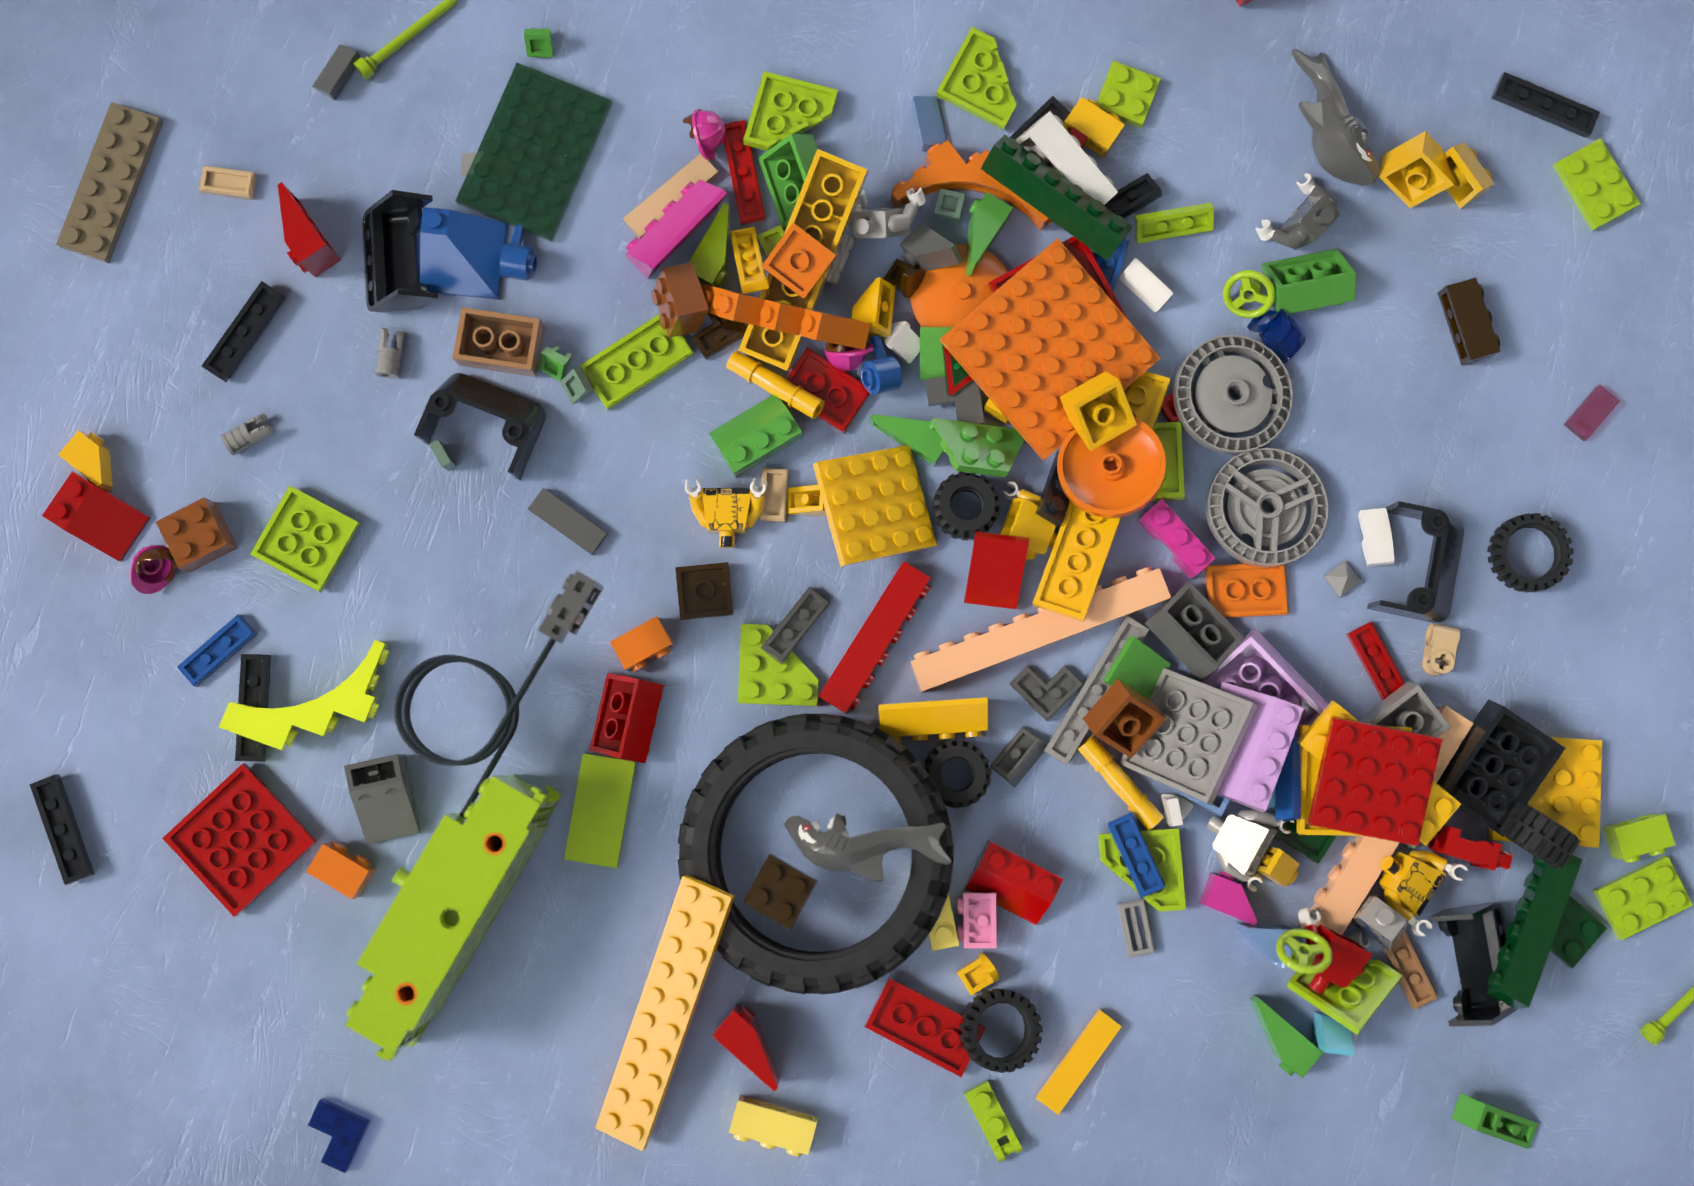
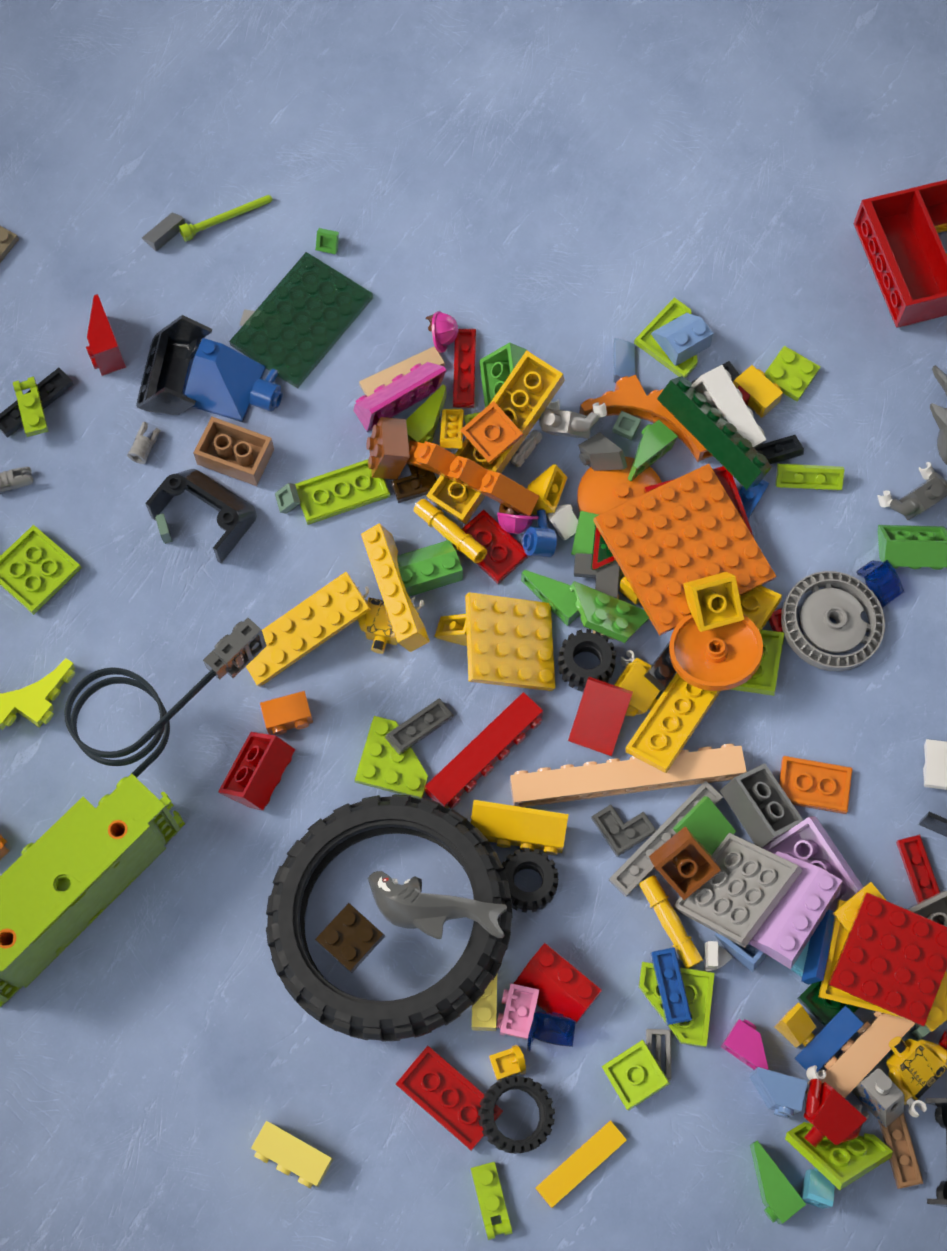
camera: 15 degrees right, 15 degrees down
(227, 182) = (55, 292): tan tile -> none
(242, 340) = (30, 407): none -> lime plate
(383, 798) = (34, 789): dark grey slope -> none
(554, 363) = (273, 477): bright green tile -> none
(567, 521) = (249, 601): dark grey tile -> none
(600, 810) = (213, 844): lime tile -> none
(641, 539) = (308, 627): none -> yellow plate
(664, 1012) = (221, 1026): yellow plate -> none
(704, 591) = (349, 682): dark brown plate -> none
(744, 1039) = (287, 1066): red slope -> none
(748, 506) = (403, 616): none -> yellow arch
(775, 495) = (430, 615): tan tile -> none
(786, 108) = (511, 324): lime plate -> none
(904, 277) = (577, 472): dark brown tile -> none
(993, 78) = (683, 337): none -> medium blue slope
(1018, 756) = (586, 881): dark grey slope -> none
(1018, 928) = (551, 1029): none -> clear blue piece
(1117, 958) = (635, 1075): none -> lime plate
(1146, 285) = (776, 520): white slope -> none
(1185, 547) = (769, 738): dark pink arch -> none
(1243, 842) = (770, 996): torso -> none
(1250, 281) = (867, 538): lime piece -> none
(1277, 490) = (845, 735): light grey piece -> none
(1303, 954) = (802, 1098): lime piece -> none
(1315, 873) = (829, 1039): none -> blue tile
(1342, 578) = (900, 794): light grey slope -> none

